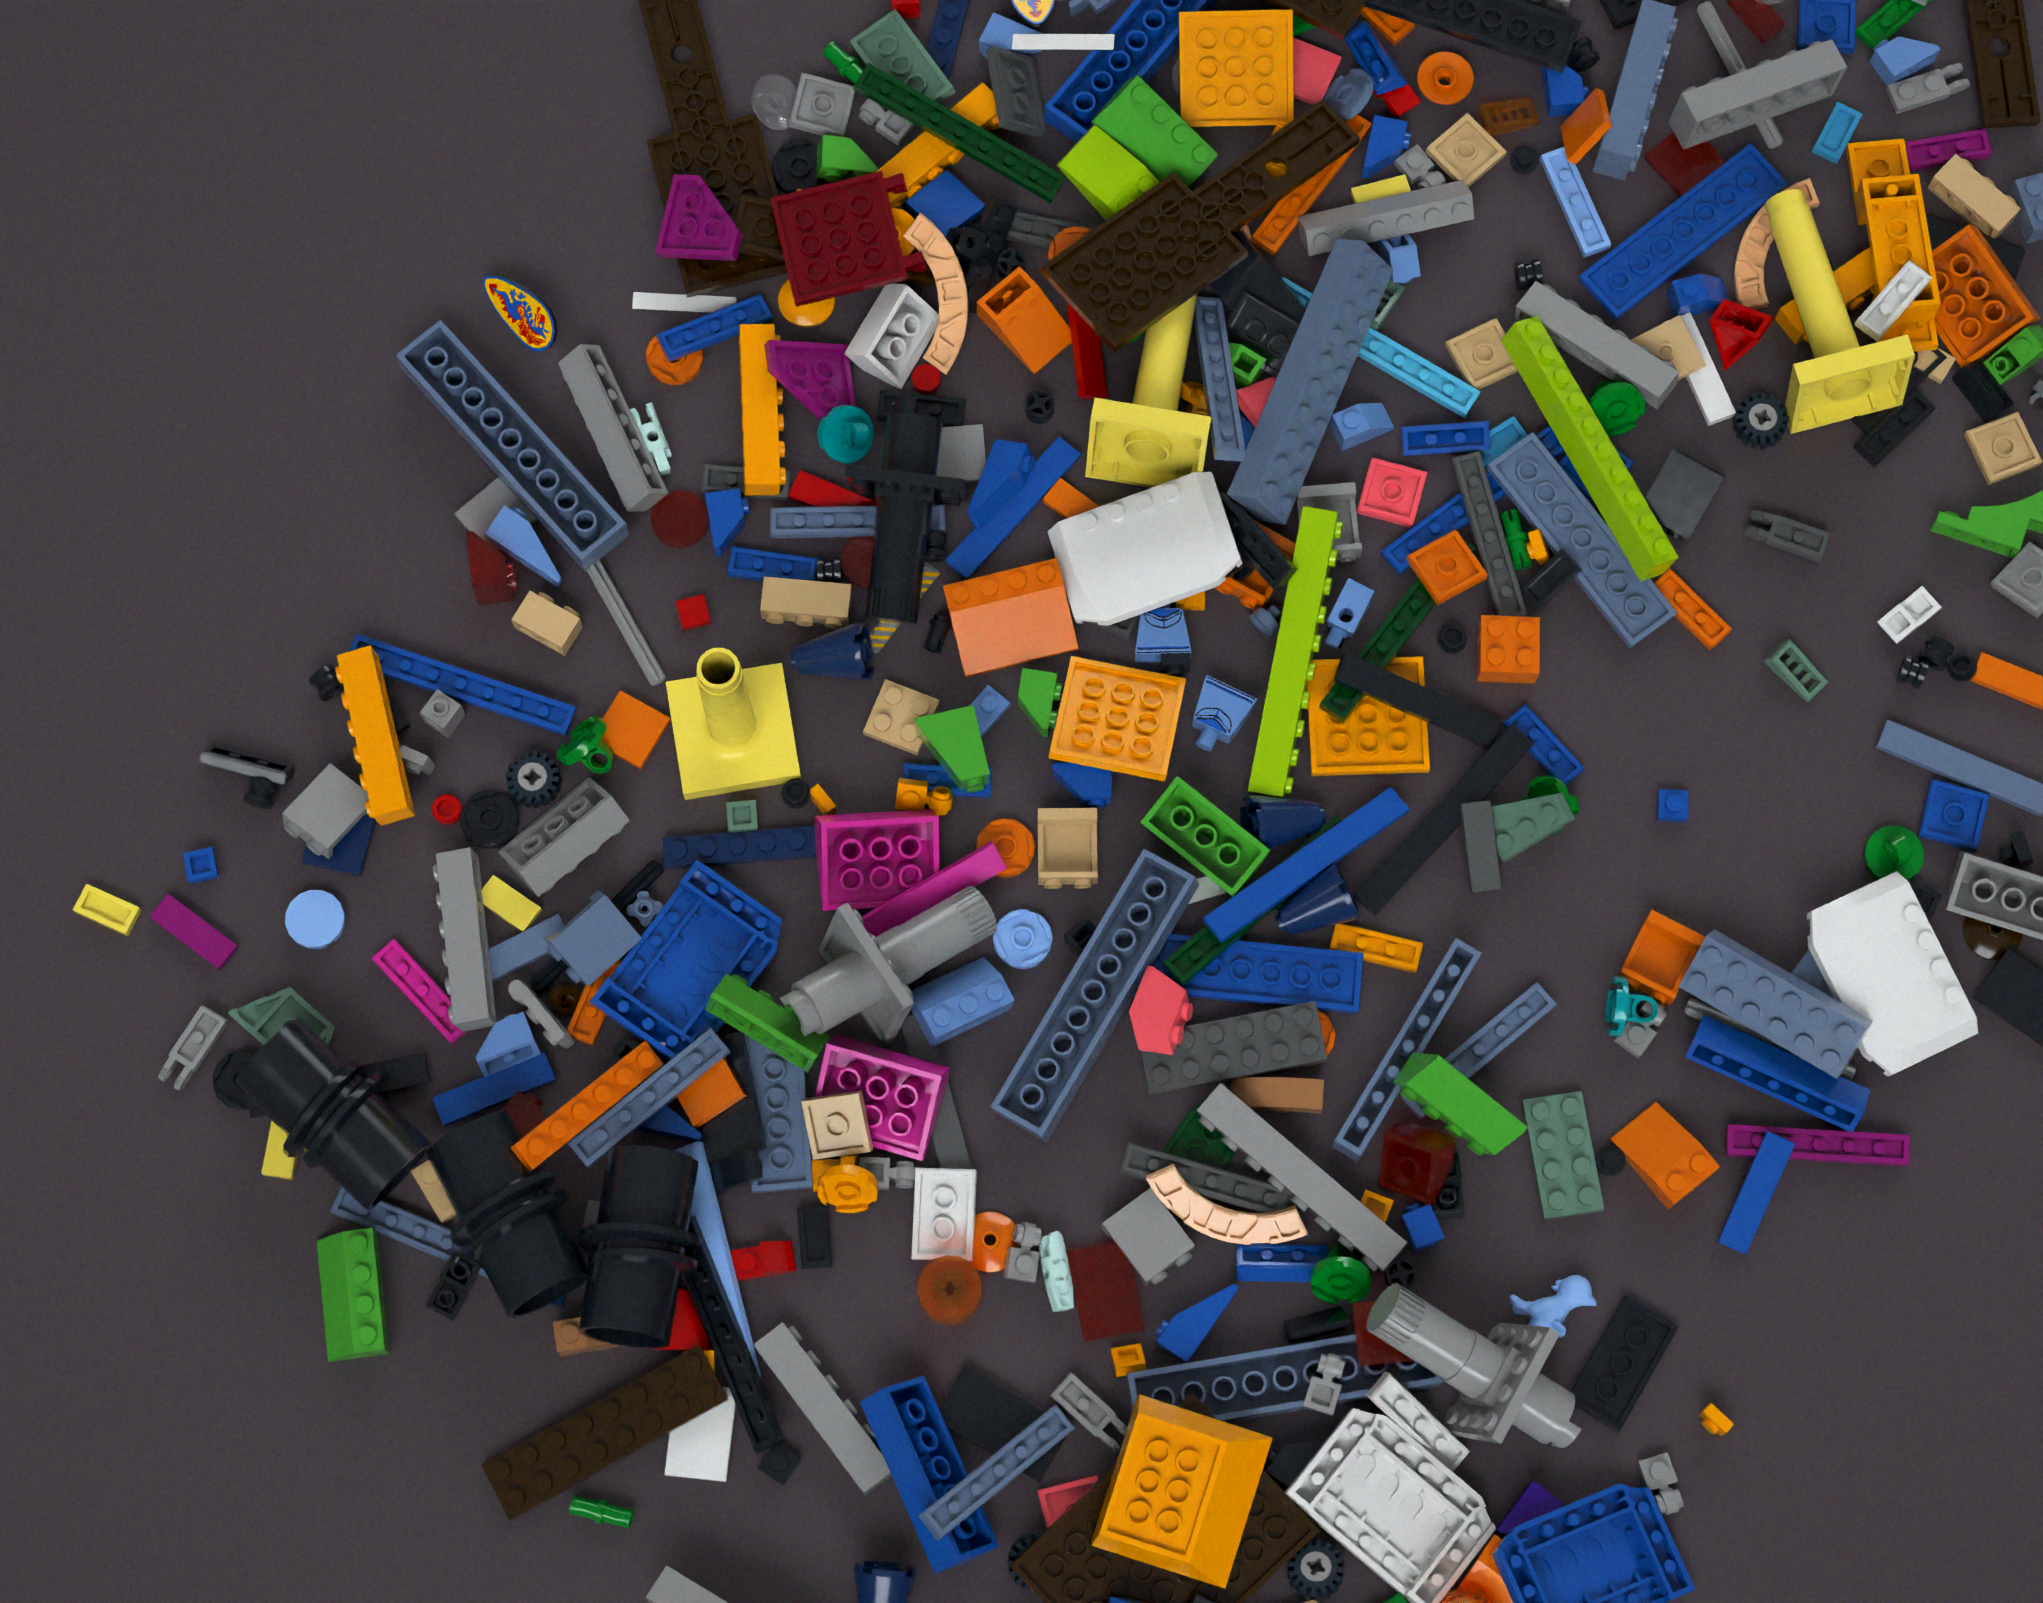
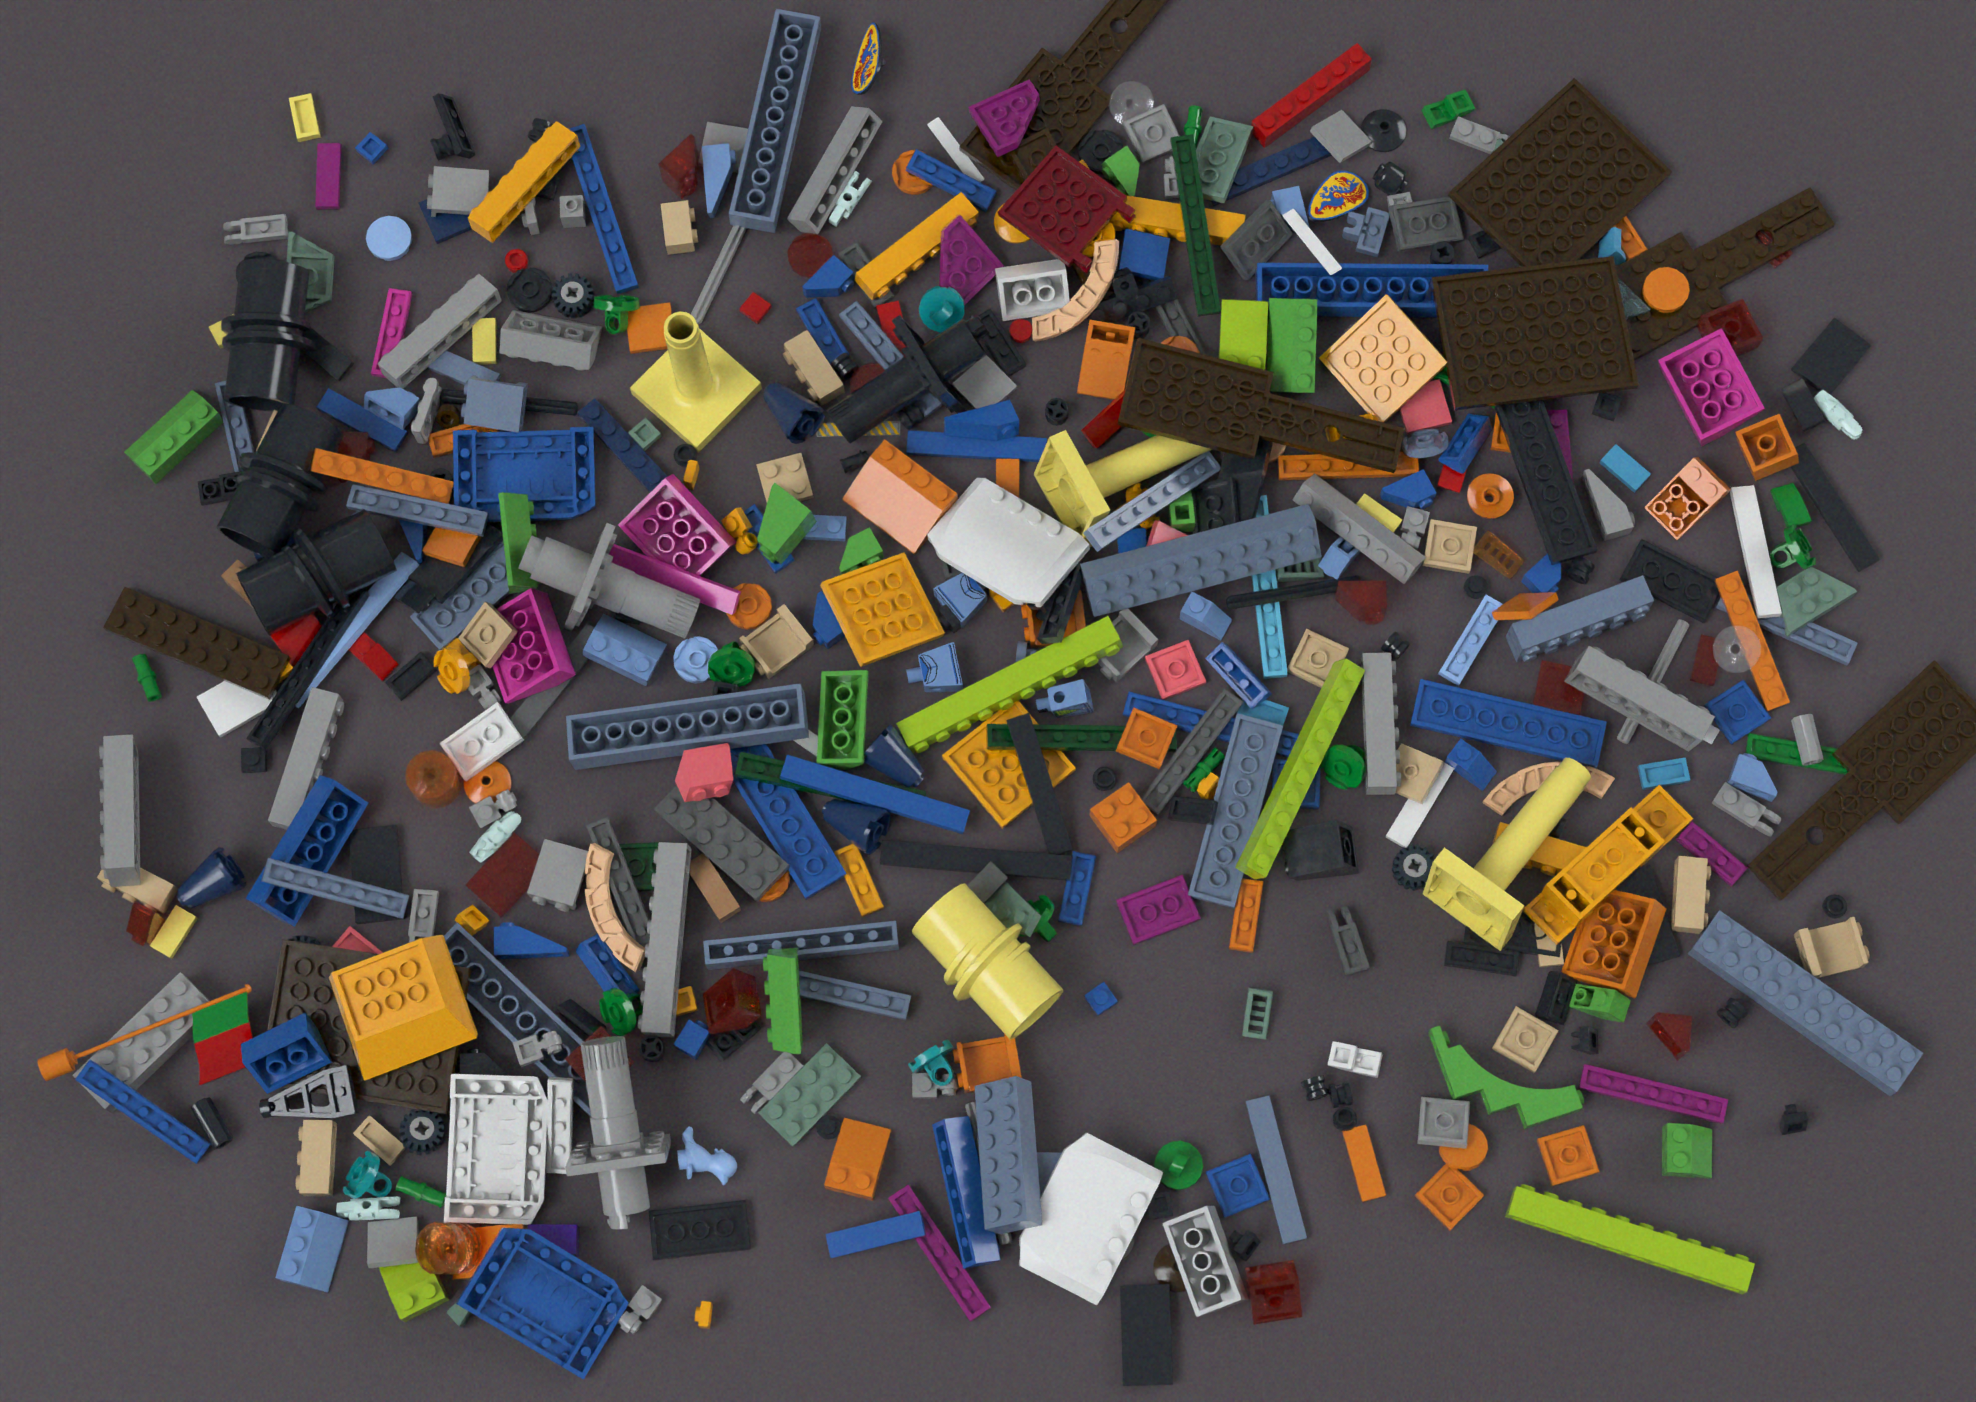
camera: 55 degrees right, 0 degrees up
(646, 917) = (537, 416): sand blue plate -> none
(1060, 906) = (731, 665): none -> green tile
(1403, 325) = (1285, 593): none -> black axle
(1464, 265) = (1363, 599): none -> clear red slope
(1521, 1180) = (773, 1080): none -> light grey hinge
(1569, 878) = (987, 961): none -> light yellow piece
(1622, 687) = (1158, 909): none -> magenta tile
(1737, 330) = (1464, 805): red slope -> none
(1893, 301) = (1555, 886): white tile -> none

